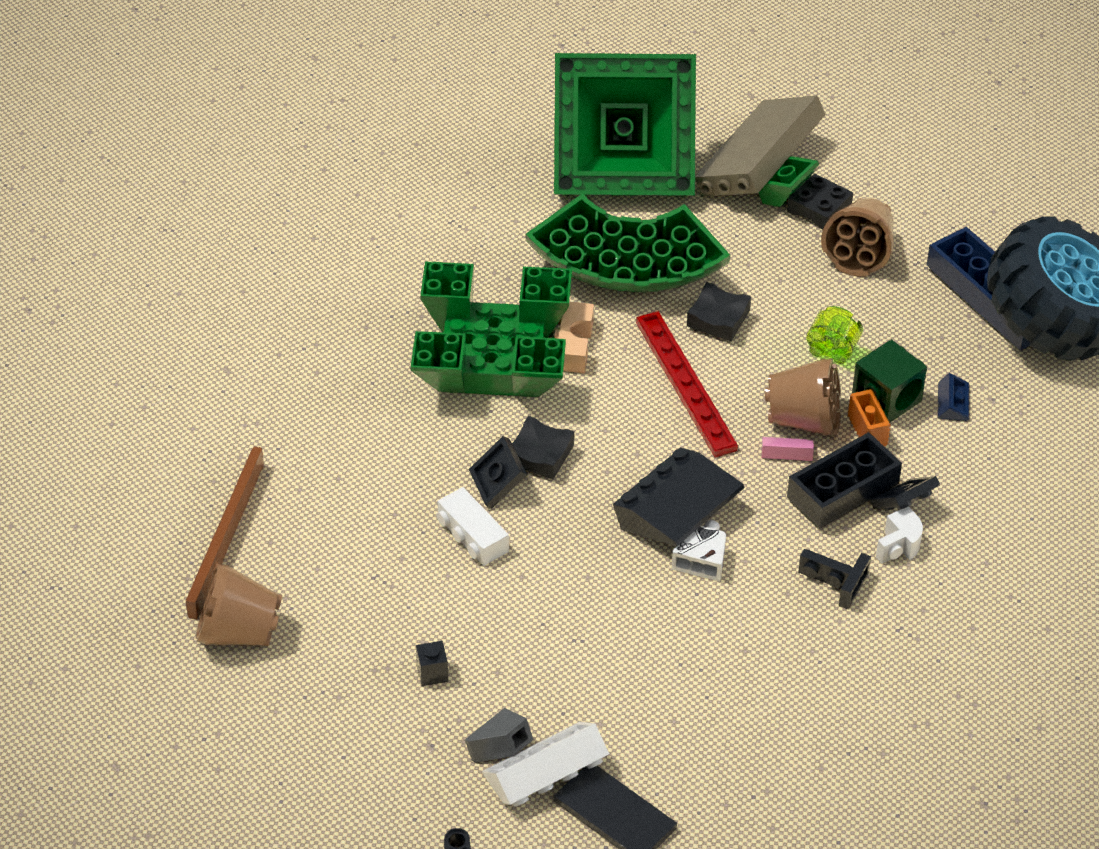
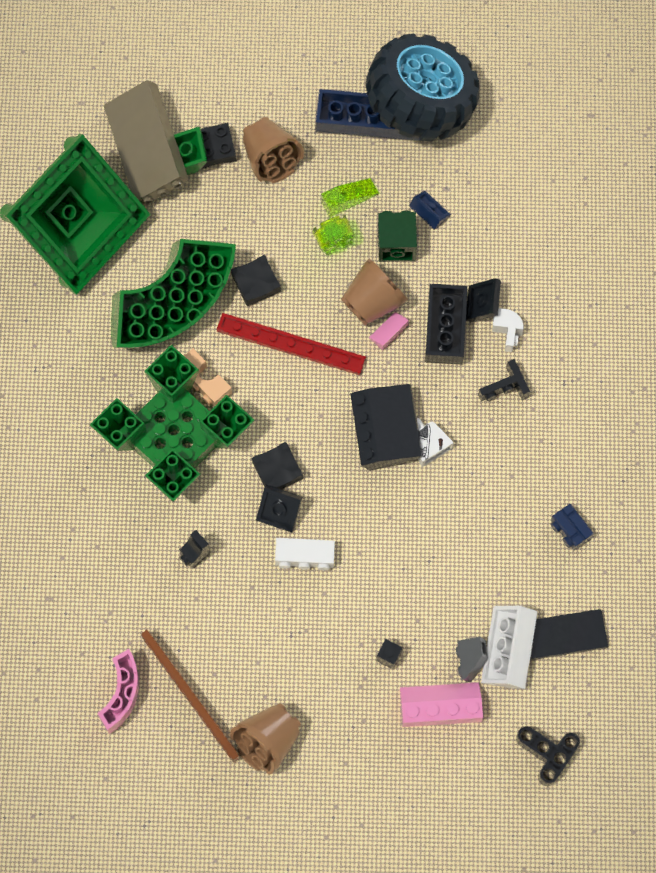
camera: 50 degrees left, 25 degrees up
(177, 478) = (126, 693): none -> bright pink brick
(385, 436) = (194, 550): none -> black arch
(418, 748) = (441, 704): none -> bright pink slope
(742, 733) = (571, 527): none -> dark blue brick
(868, 416) = (413, 271): orange brick -> none
(886, 323) = (347, 196): none -> clear neon green slope

